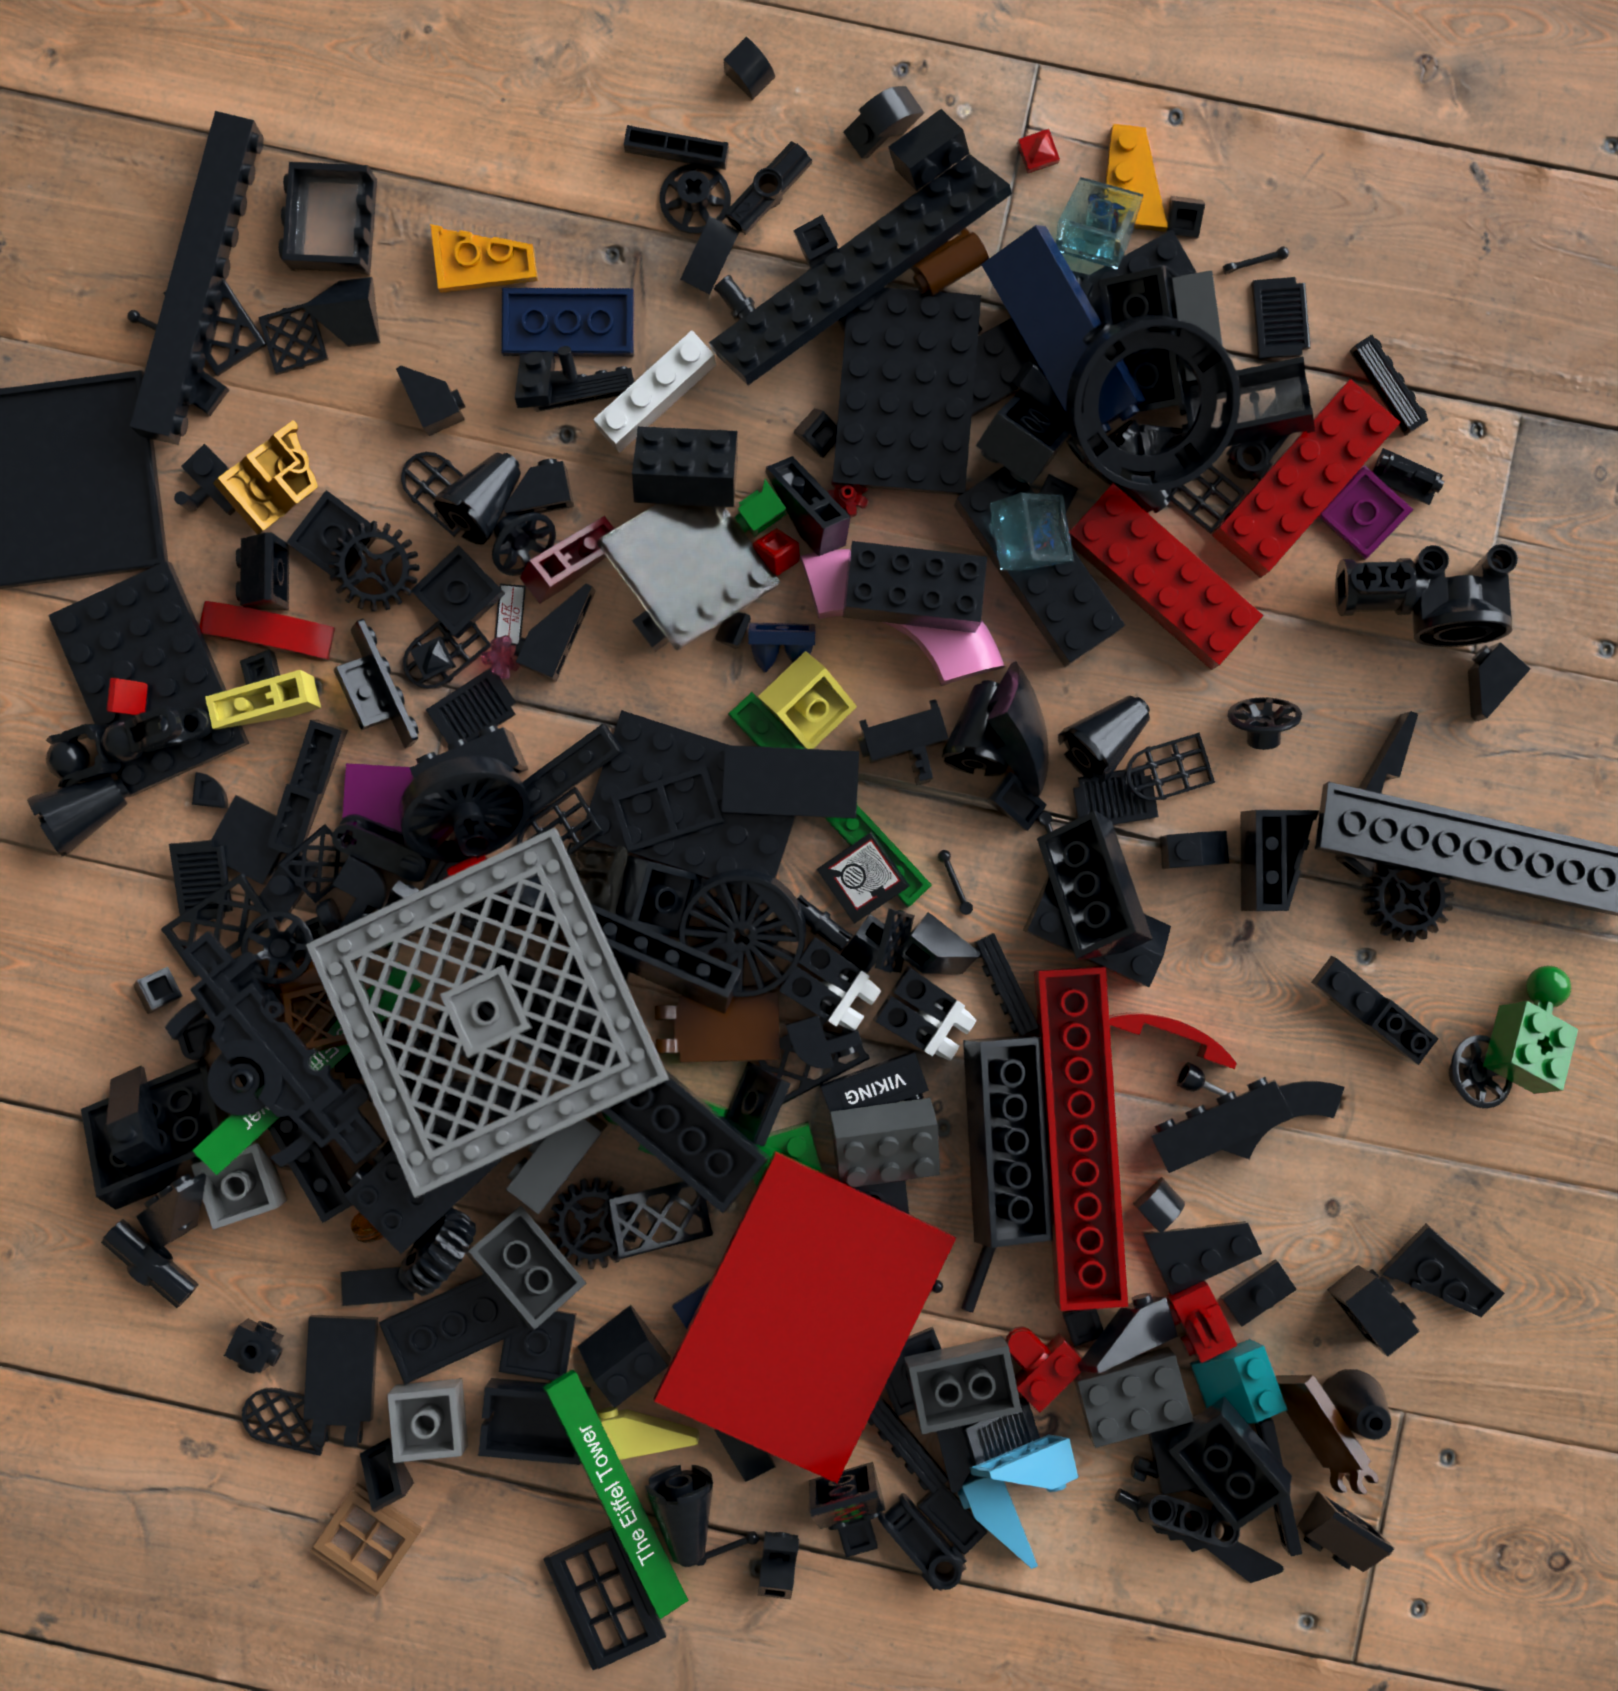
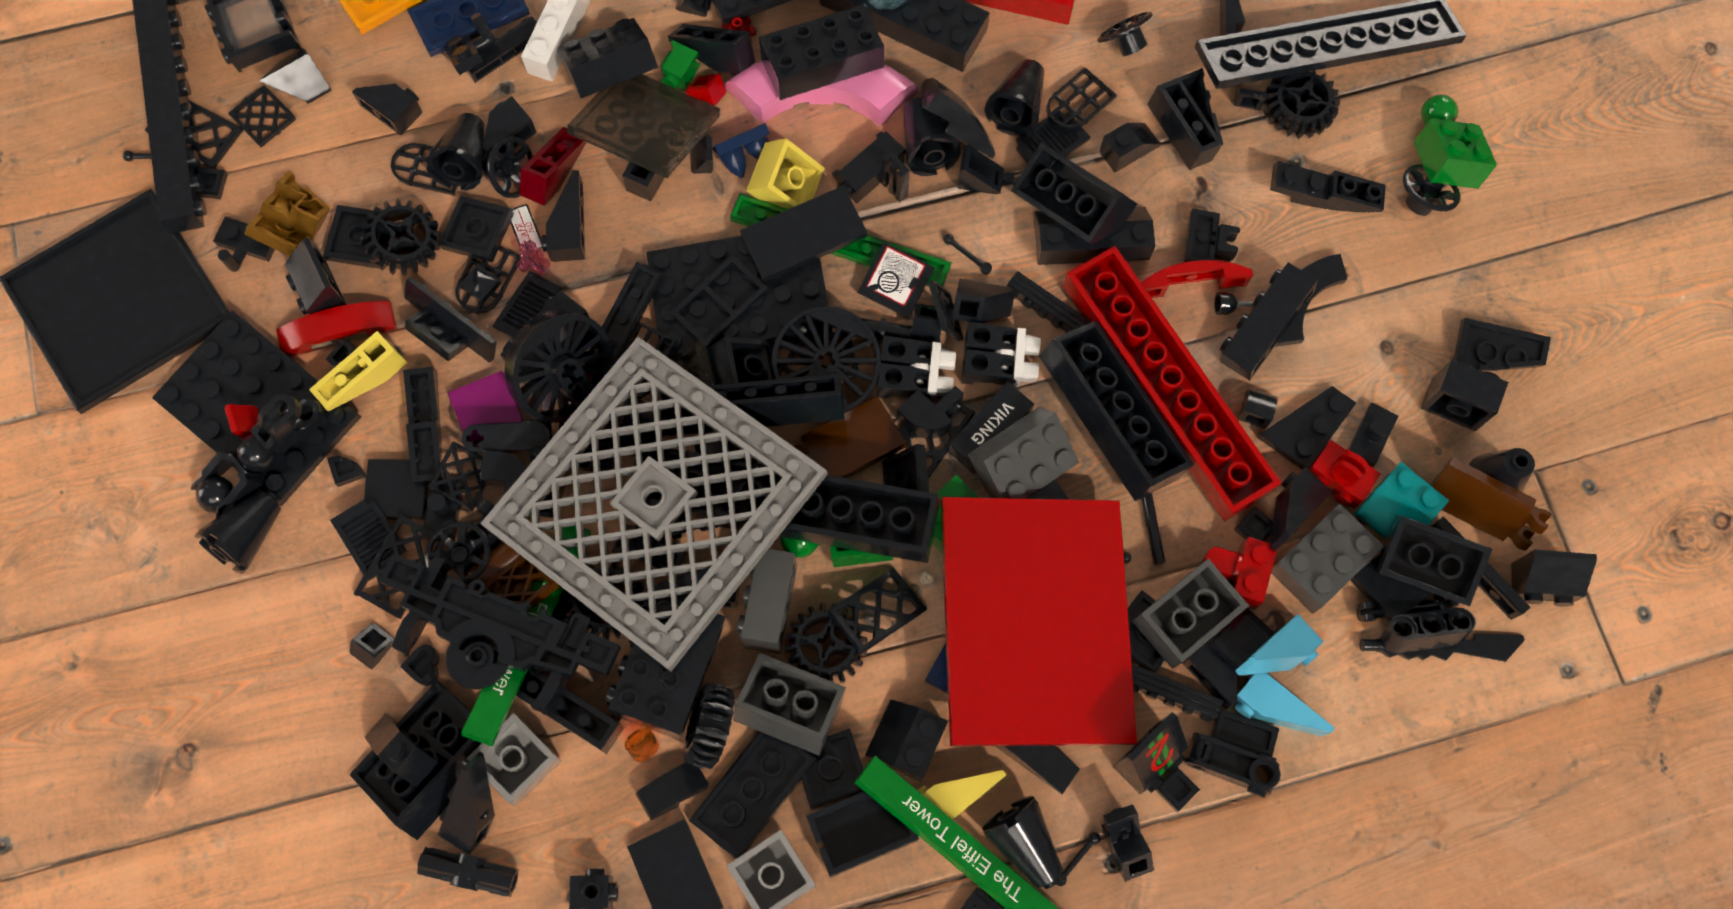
camera: 25 degrees left, 15 degrees down
(1213, 998) = (1209, 240): none -> black plate

